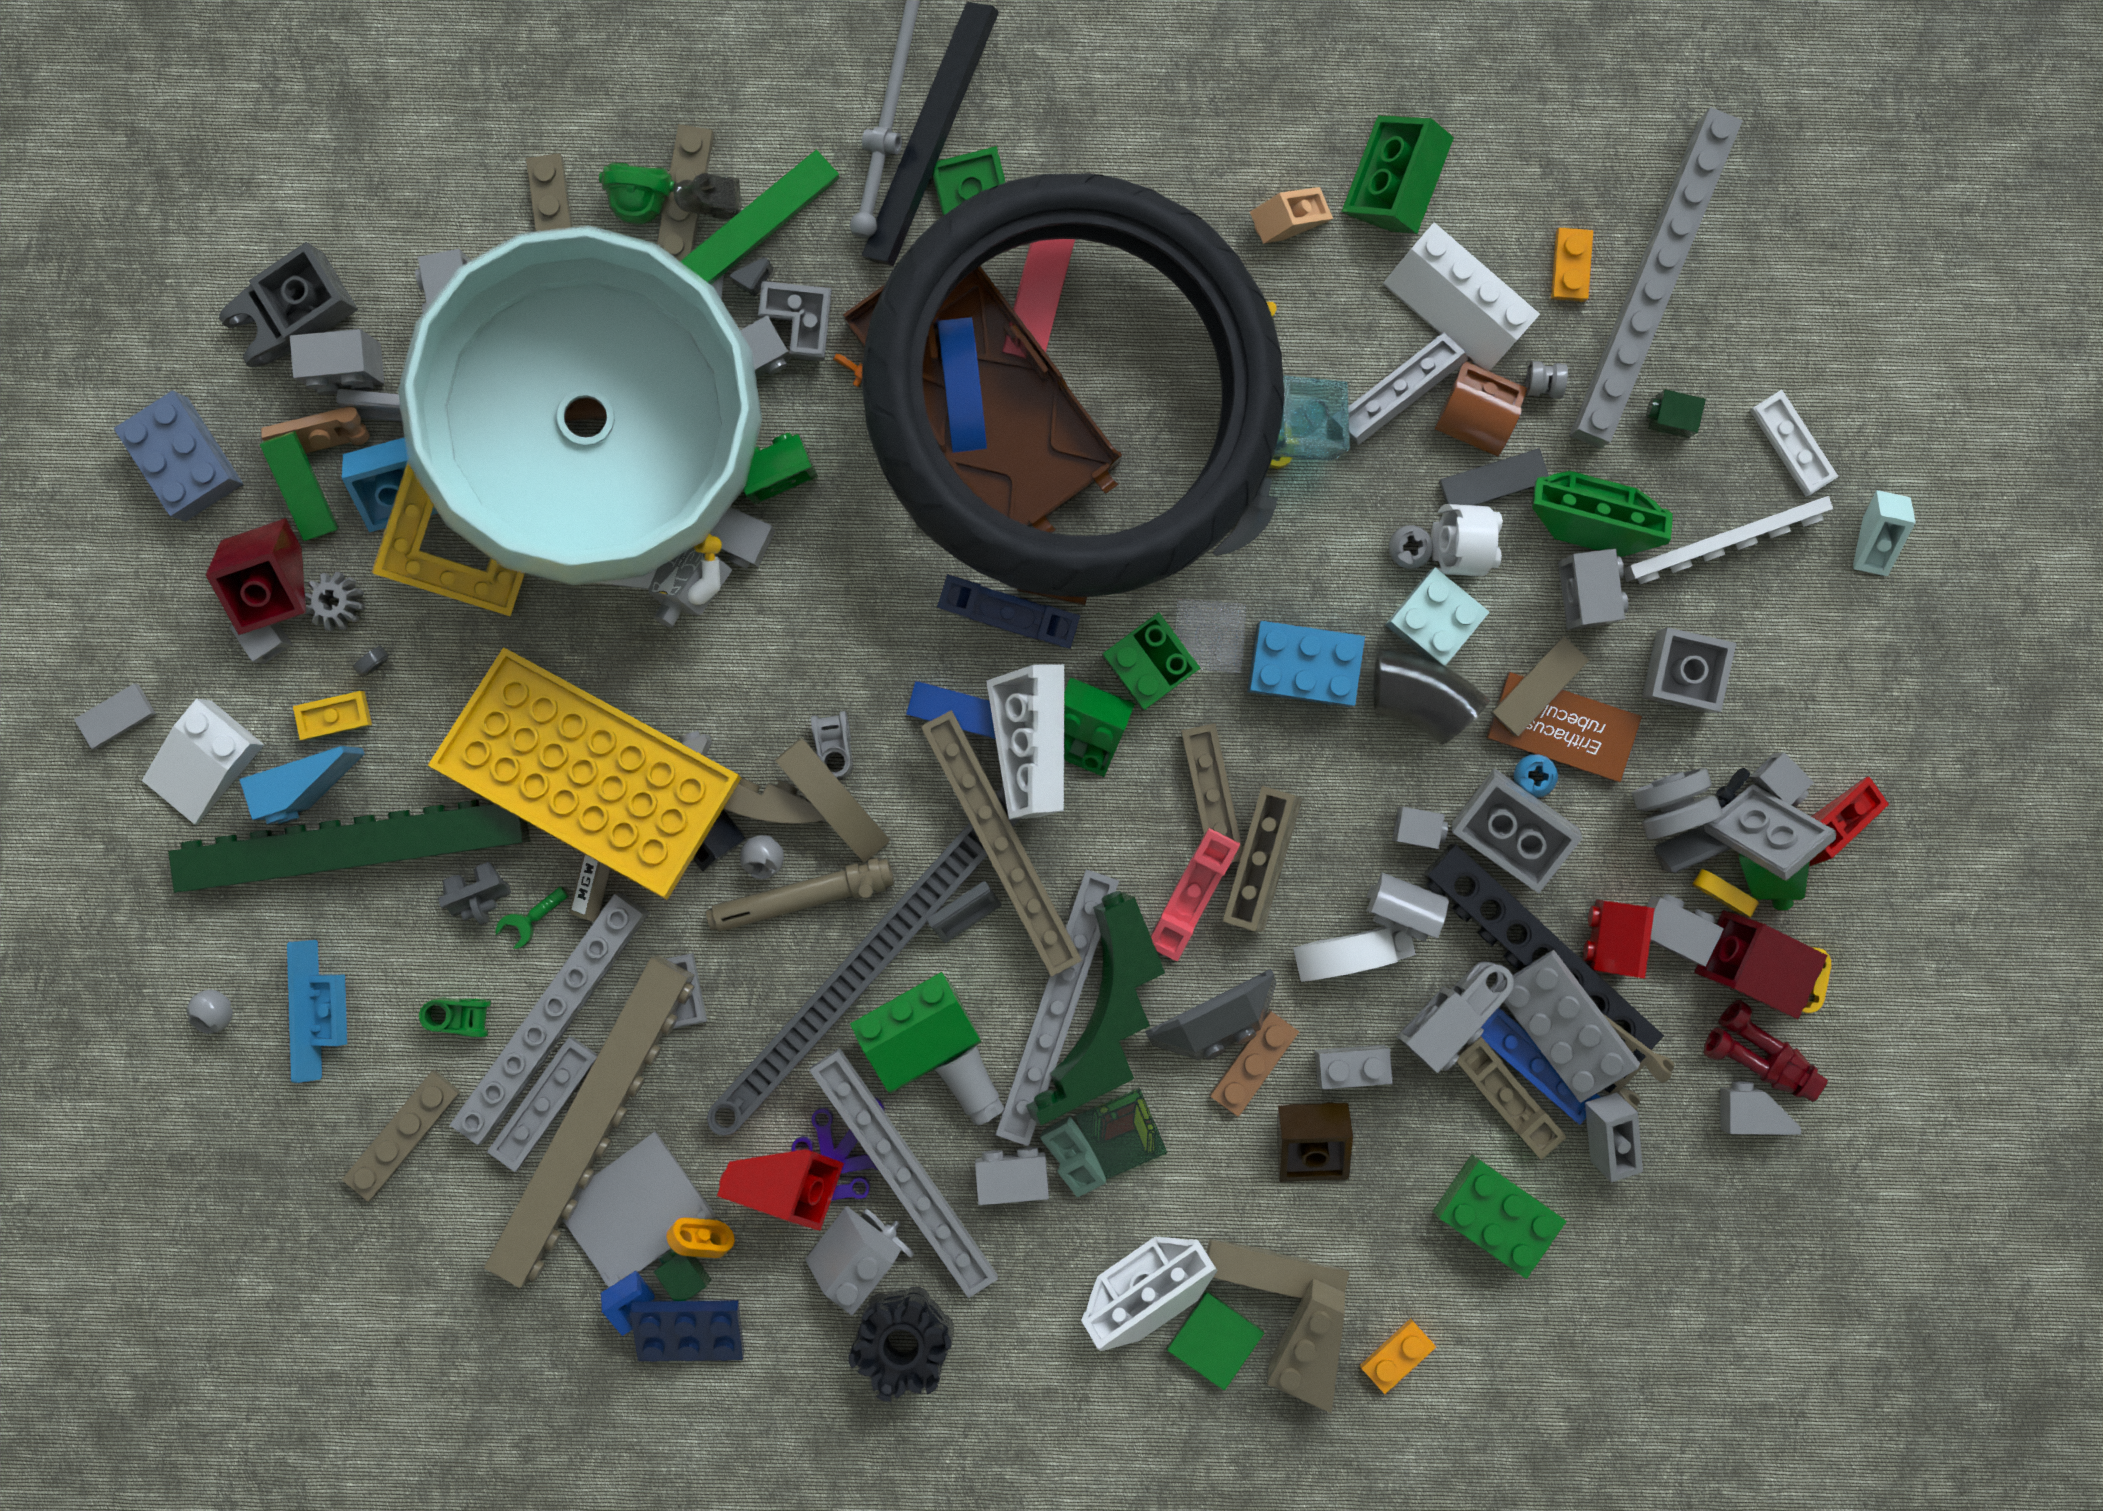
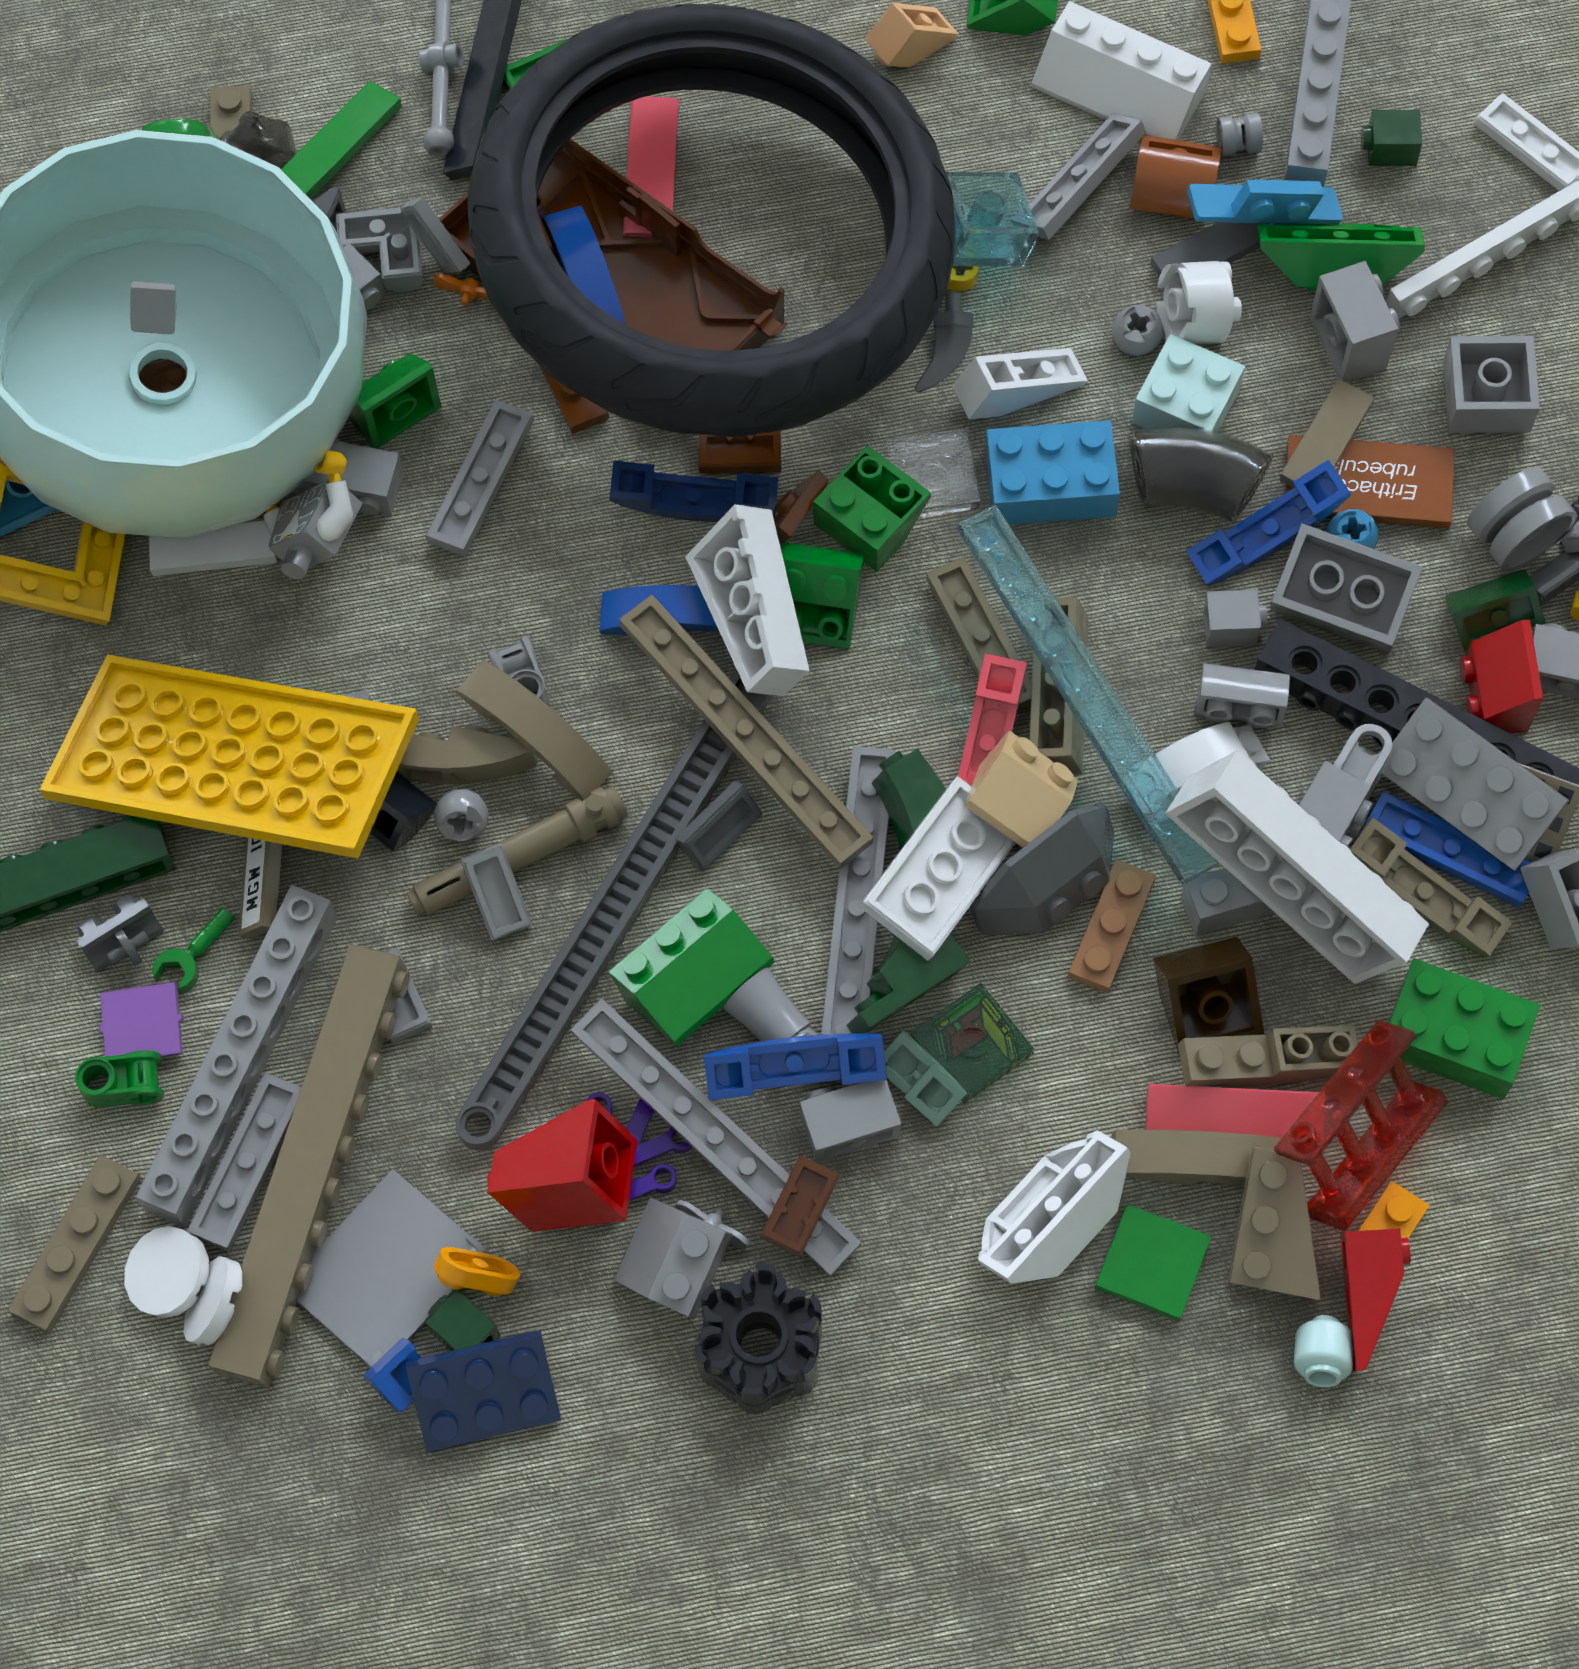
camera: 10 degrees left, 20 degrees down
(465, 1180) = (166, 1271): none -> white tile
(480, 970) = (142, 1020): none -> medium lavender piece
(494, 1215) = (212, 1310): none -> white tile
(571, 416) = (153, 307): none -> light grey slope
(776, 929) = (496, 891): none -> light grey tile
(836, 555) = (480, 478): none -> light grey plate
(840, 325) = (434, 236): none -> light grey tile
(956, 1248) = (800, 1206): none -> reddish brown plate
(977, 1130) = (794, 1062): none -> blue slope
(1088, 648) = (795, 505): none -> reddish brown plate
(1130, 1002) = (937, 873): none -> white tile
(1207, 953) = (1020, 790): none -> tan slope
(1281, 885) = (1083, 688): none -> clear light blue plate
(1300, 571) = (1016, 380): none -> white slope
(1308, 1240) = (1224, 1109): none -> coral slope
(1324, 1442) = (1324, 1351): none -> light aqua head
(1347, 1204) = (1267, 1059): none -> dark tan slope
(1374, 1407) = (1371, 1280): none -> red slope
(1400, 1289) = (1383, 1144): none -> clear red fence
(1407, 1079) = (1297, 867): none -> white brick
(1470, 754) = (1271, 527): none -> blue slope
(1548, 458) = (1265, 202): none -> dark azure bracket
(1632, 868) = (1494, 606): none -> dark green panel

